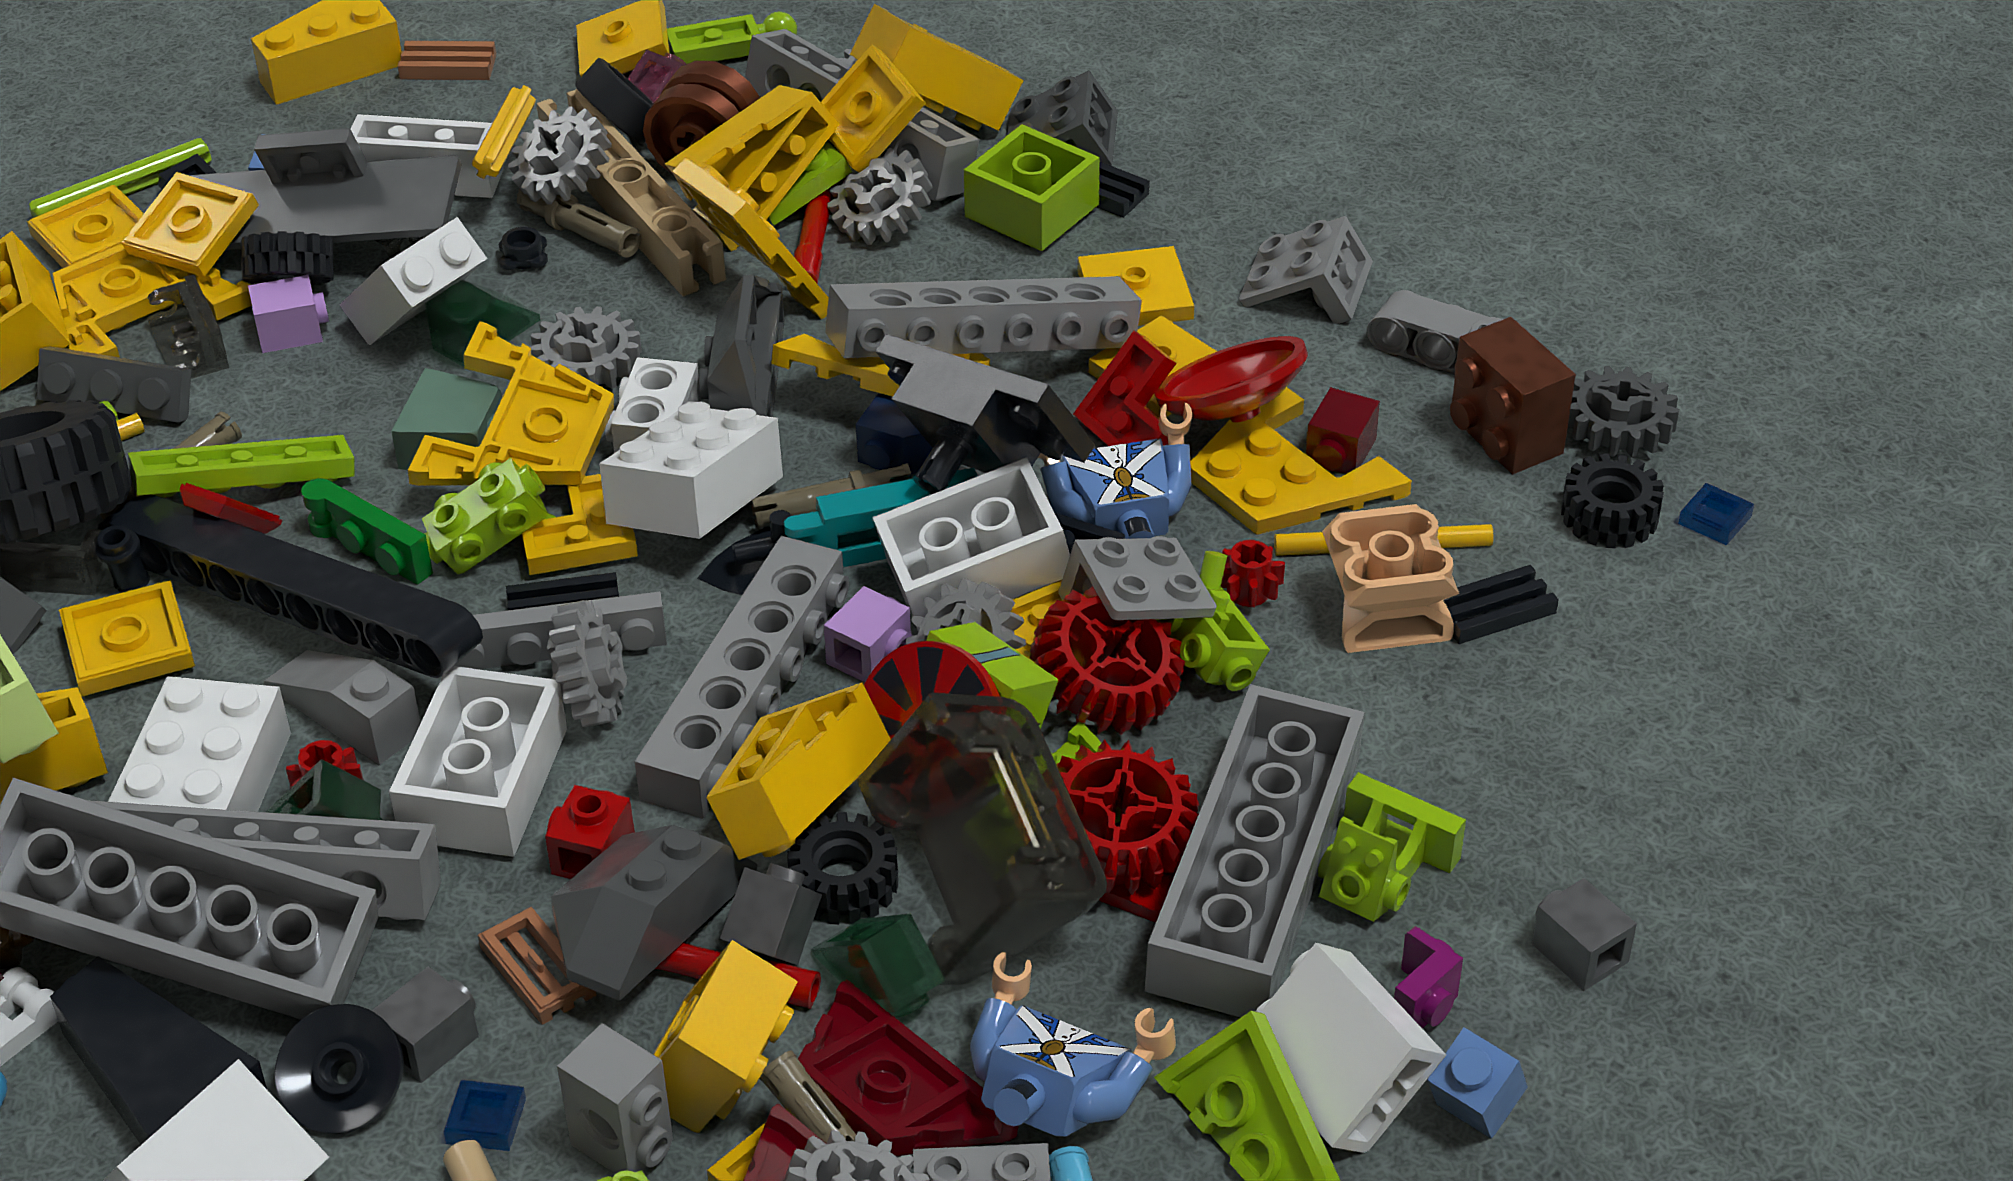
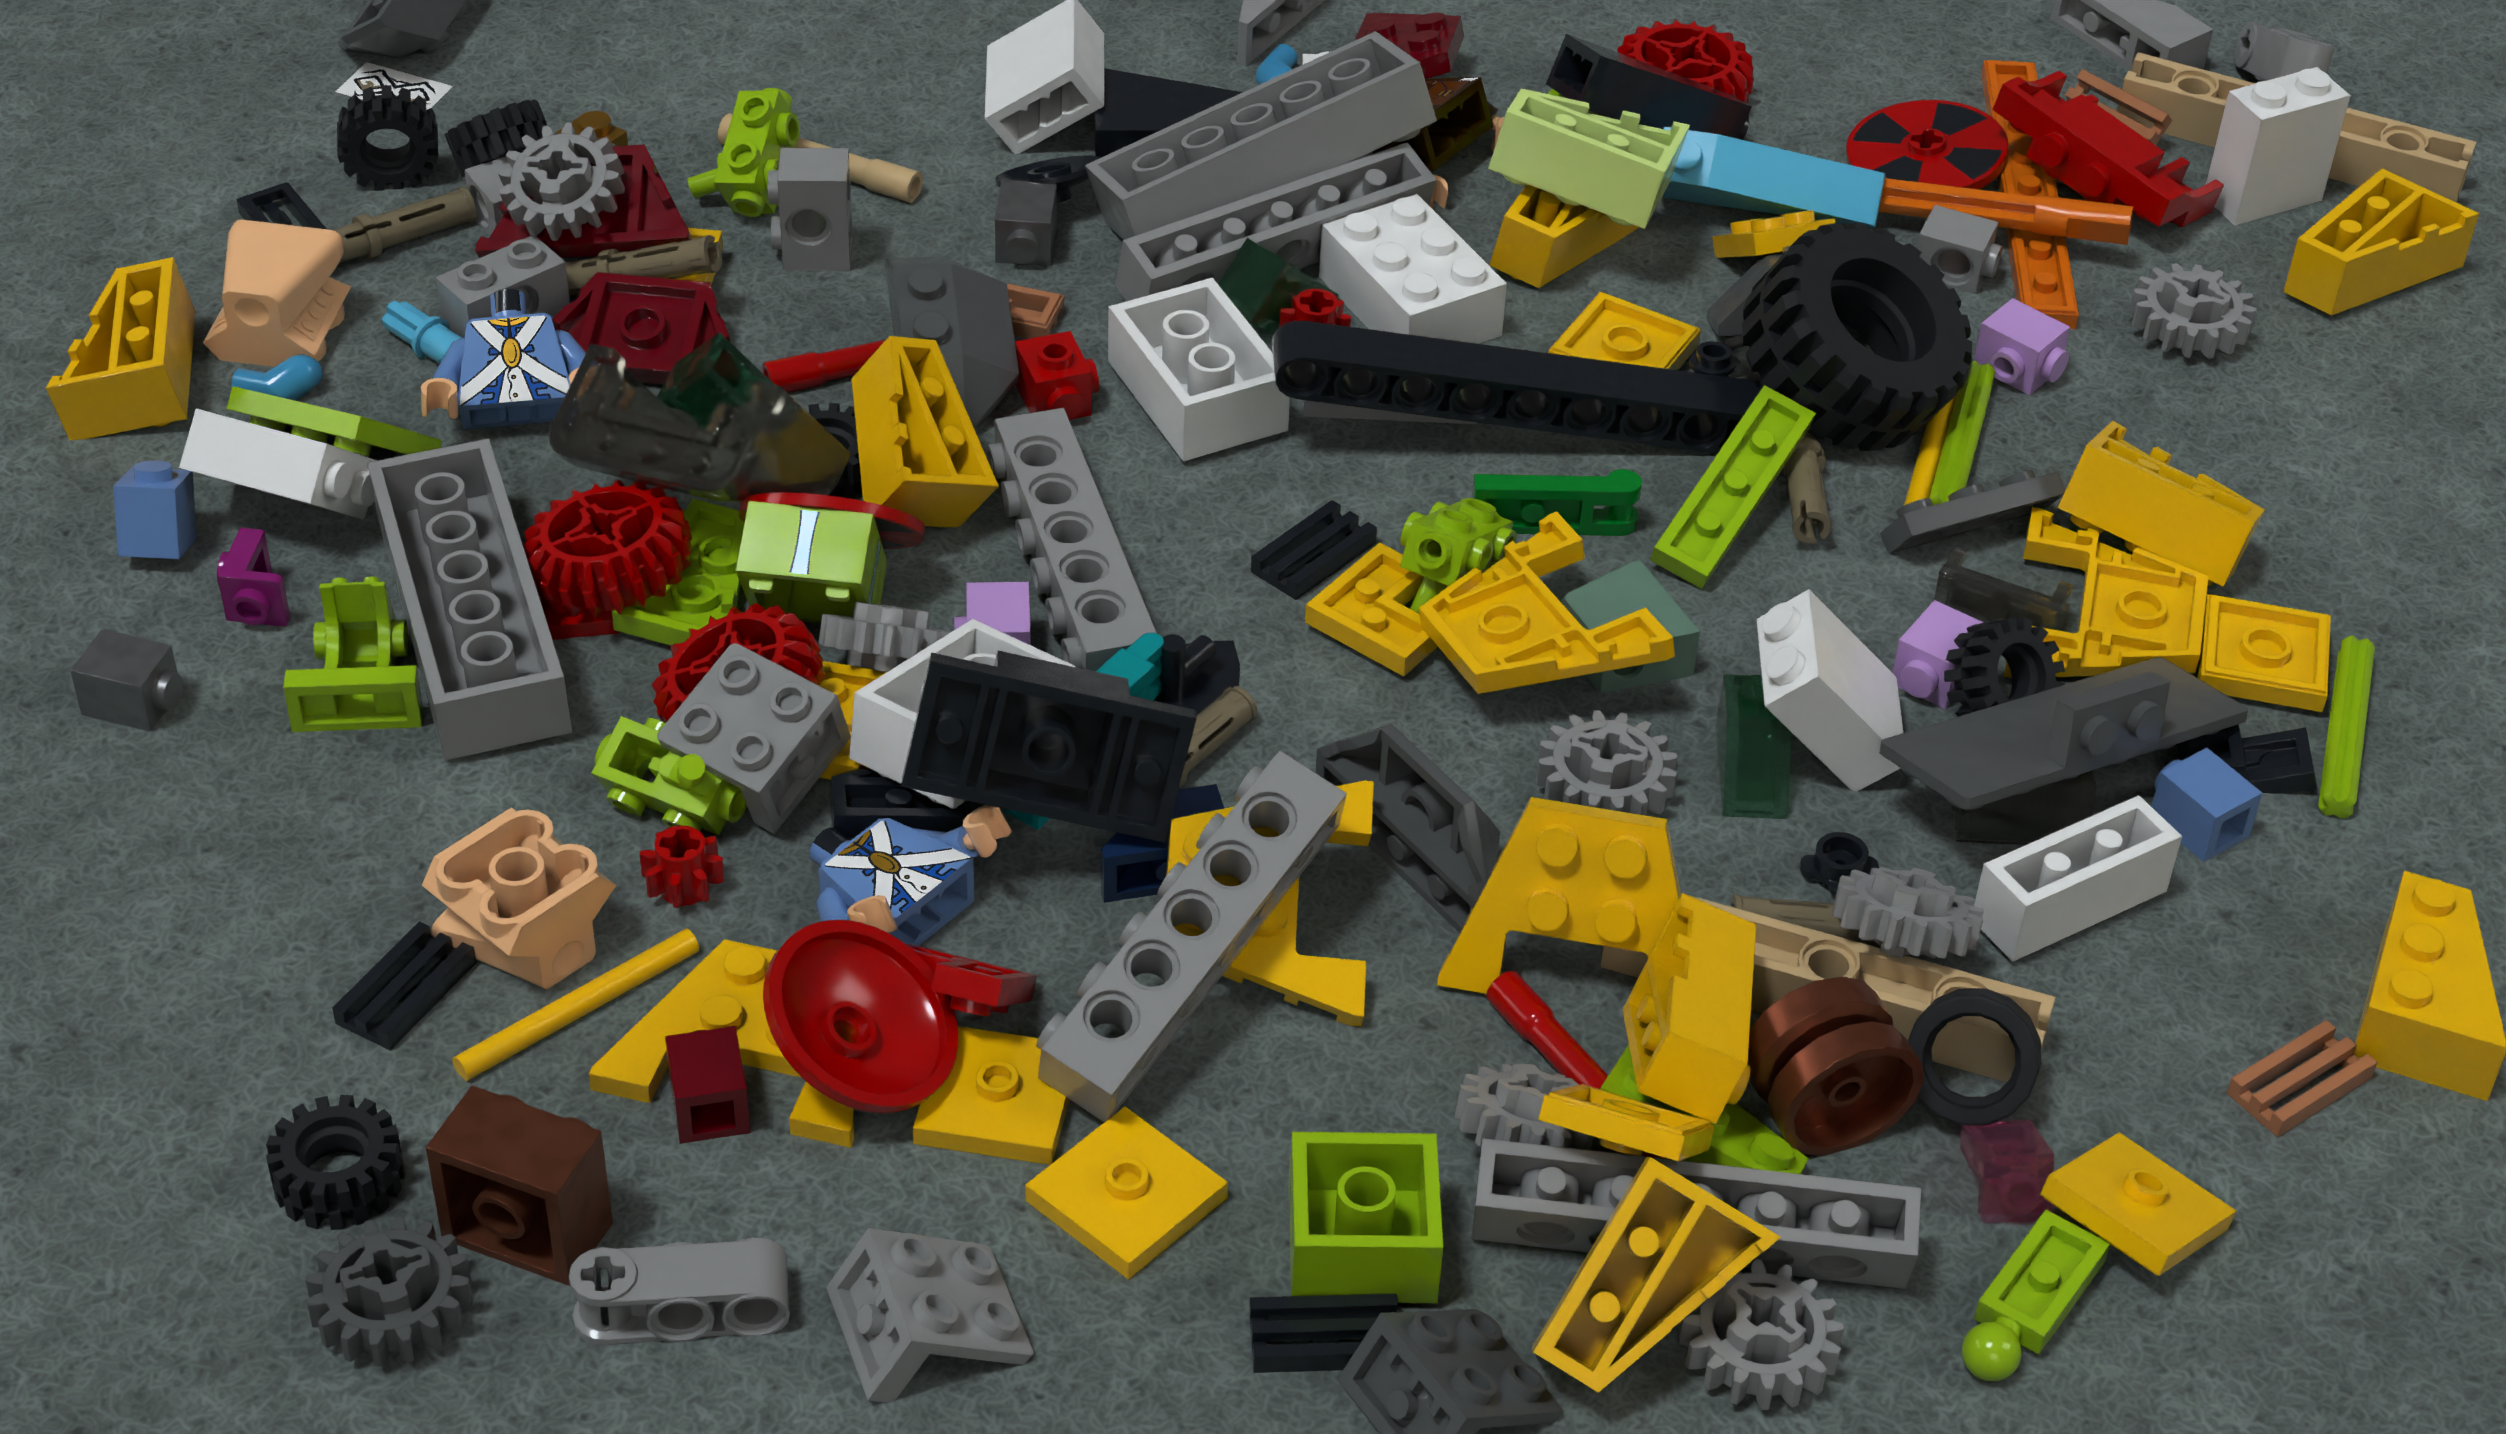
camera: 140 degrees right, 0 degrees up
(190, 224) = (2145, 641): yellow plate -> none
(229, 509) = (1679, 439): red tile -> none
(485, 1114) = (928, 217): clear blue tile -> none
(503, 132) = (2000, 897): yellow axle -> none
(523, 634) = (1278, 502): light grey plate -> none
(587, 663) = (1193, 452): light grey gear -> none
(651, 396) = (1455, 731): white brick -> none
(691, 470) = (1308, 645): white brick -> none
(720, 1035) = (779, 263): yellow brick -> none
(772, 913) = (830, 370): flat silver brick -> none
(1716, 513) = (205, 1231): clear blue tile -> none

